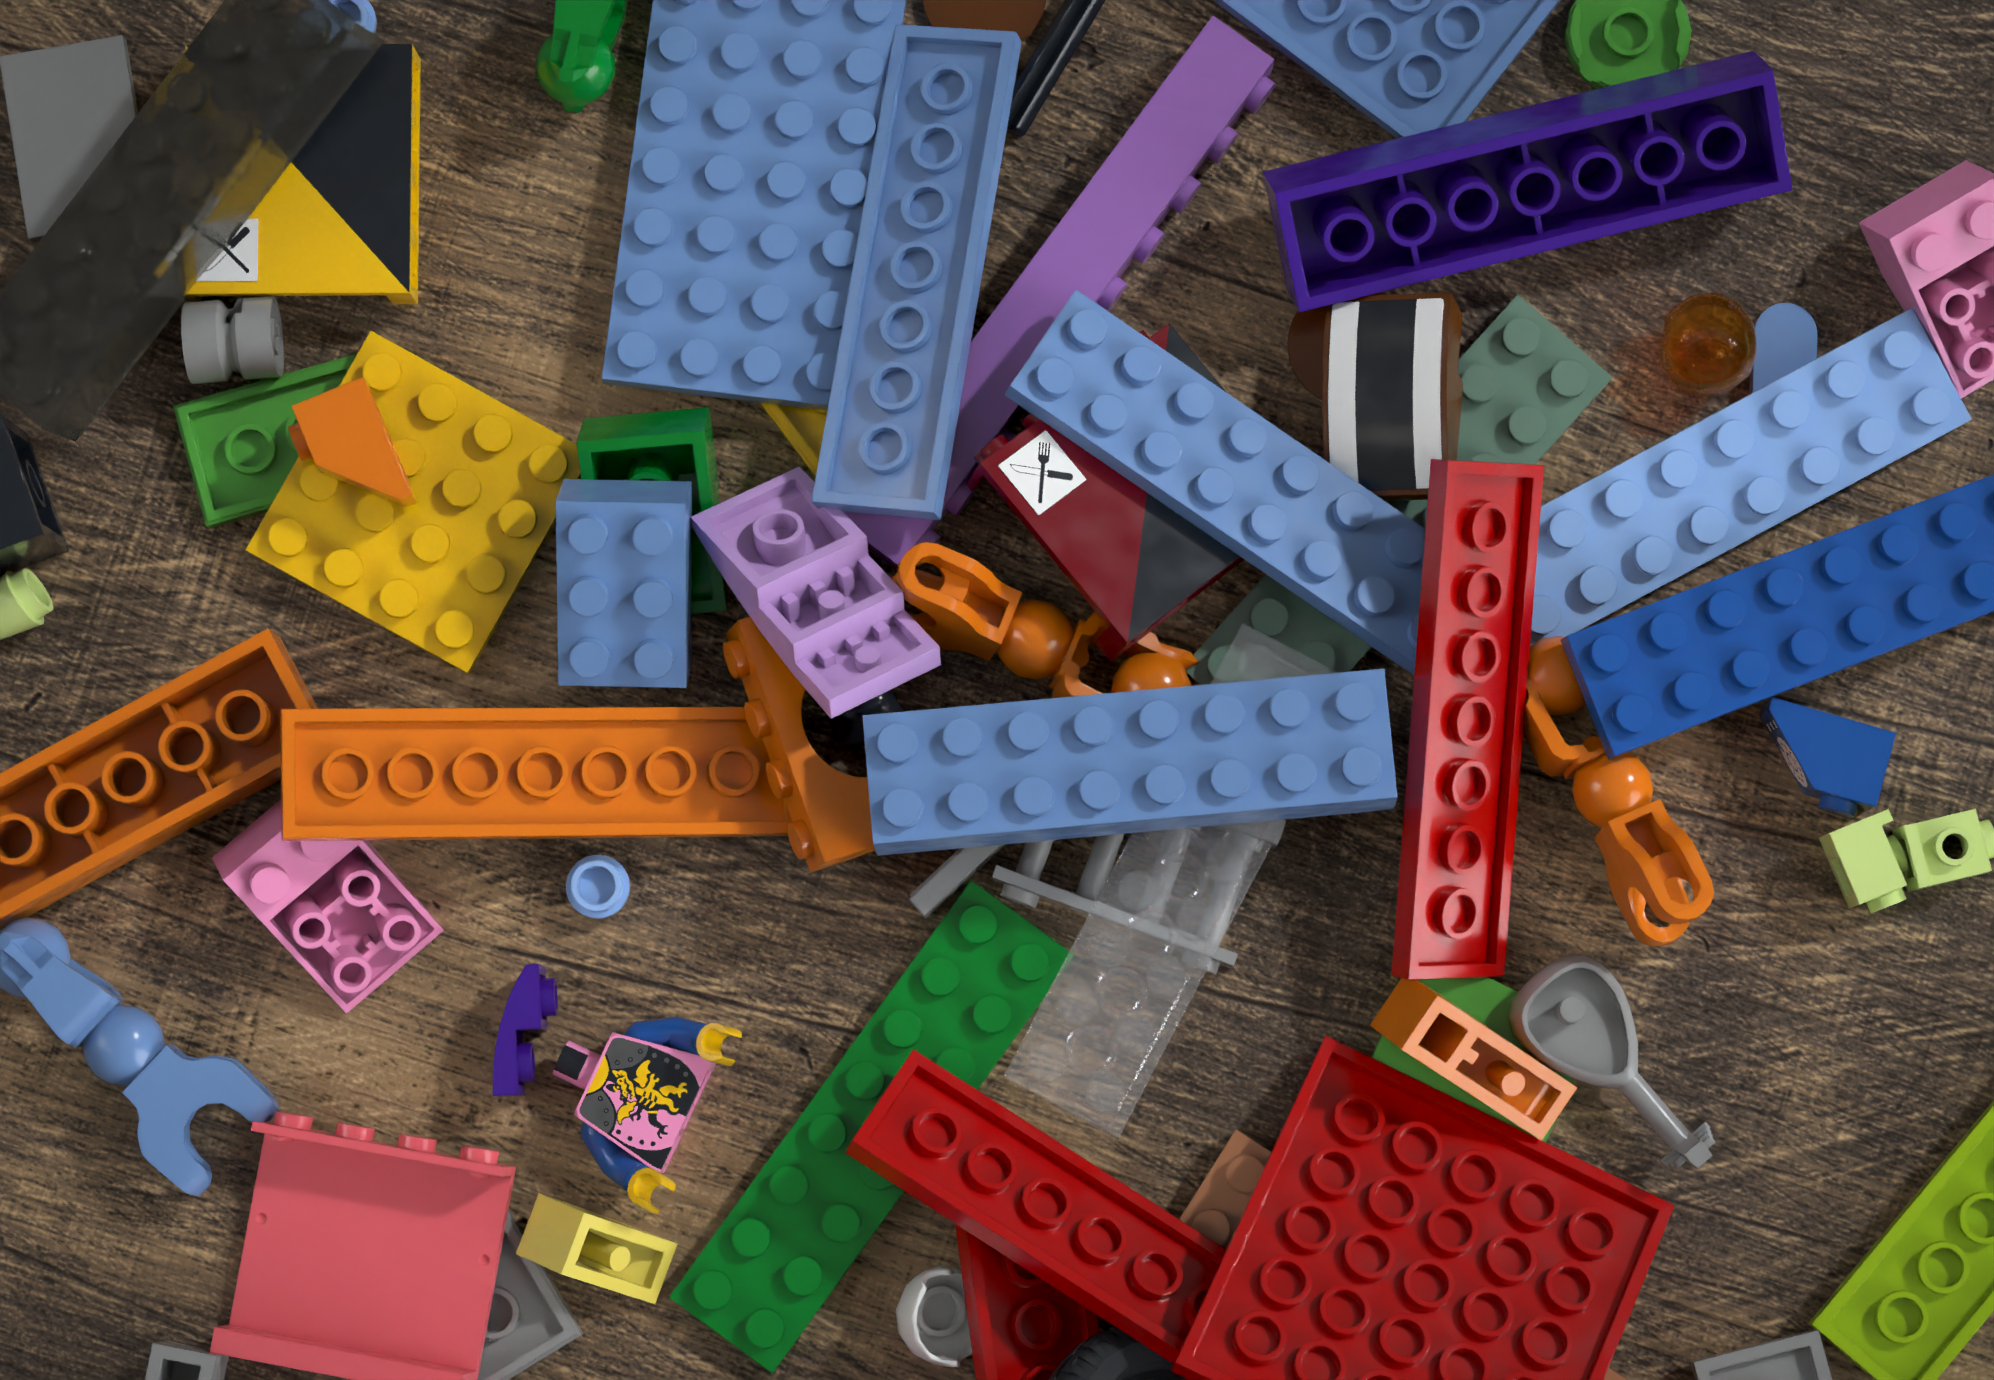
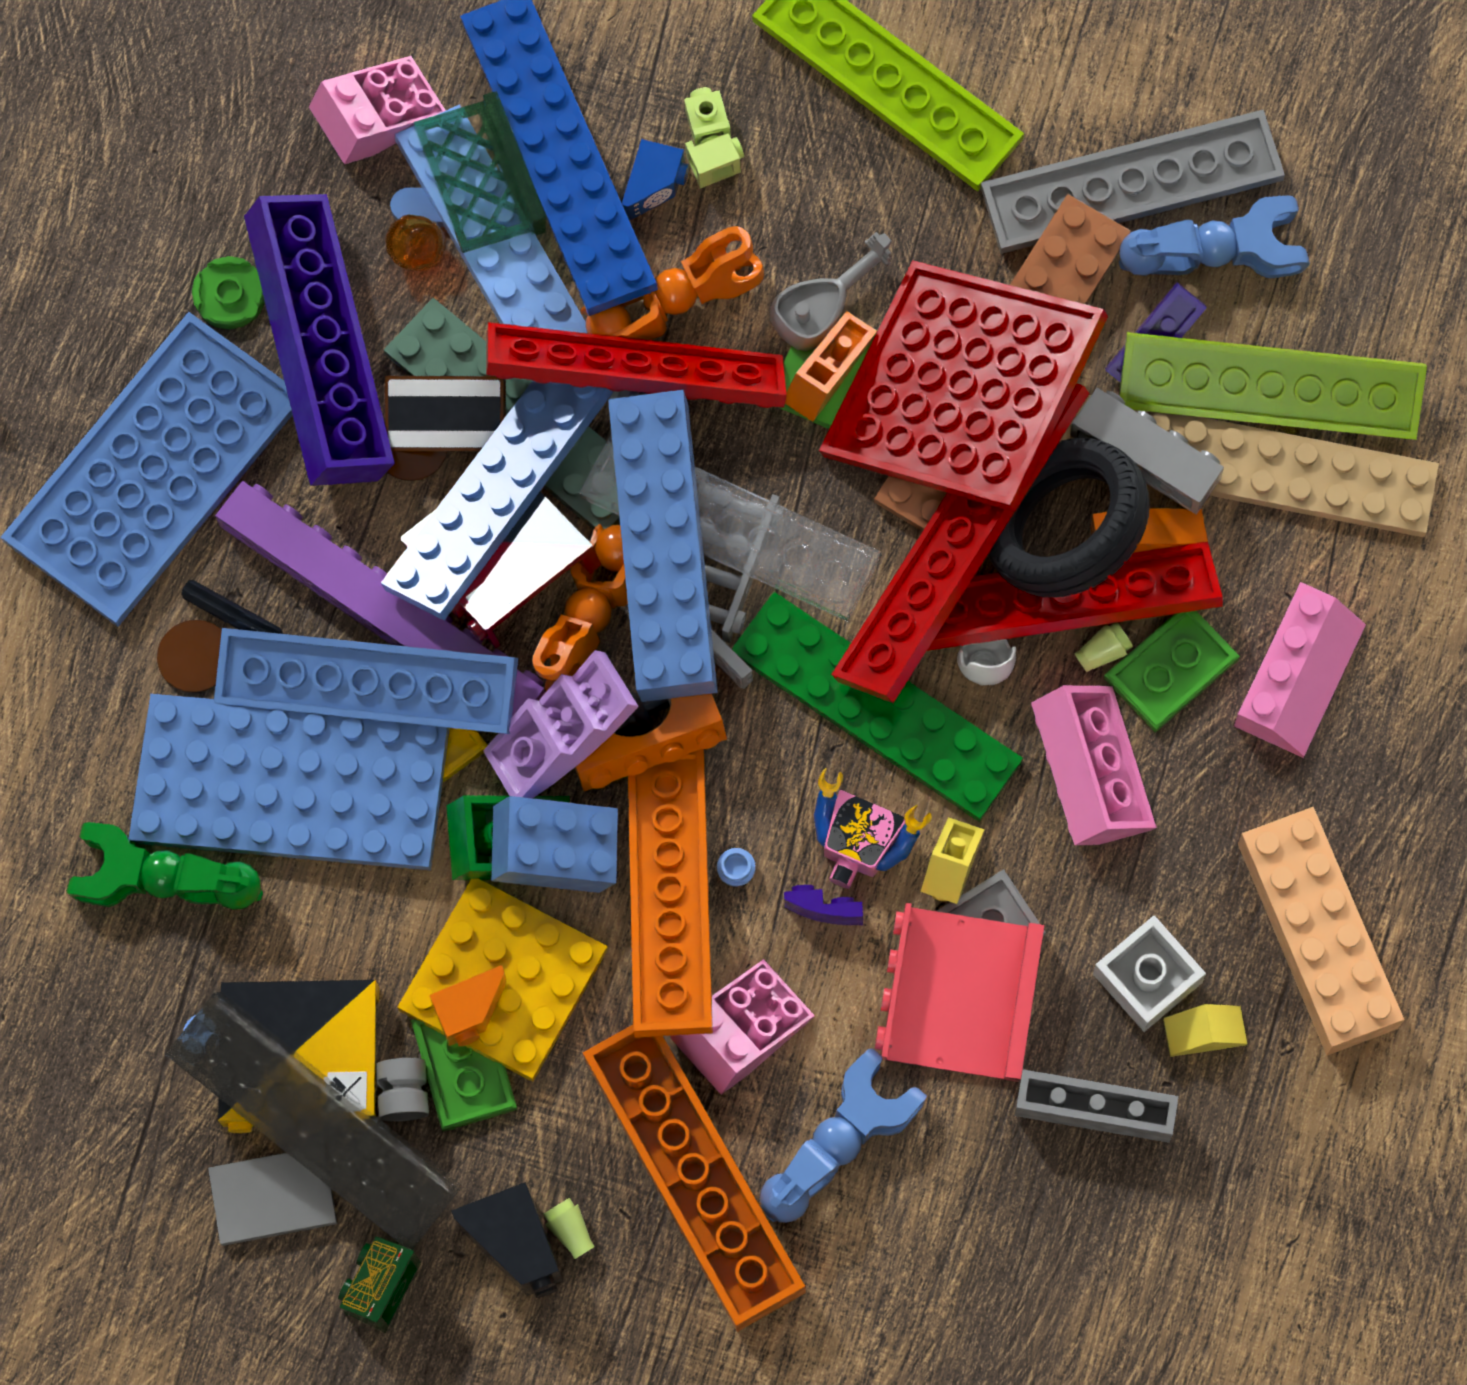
camera: 90 degrees left, 10 degrees down
(1851, 506) = (510, 162): none -> clear green fence

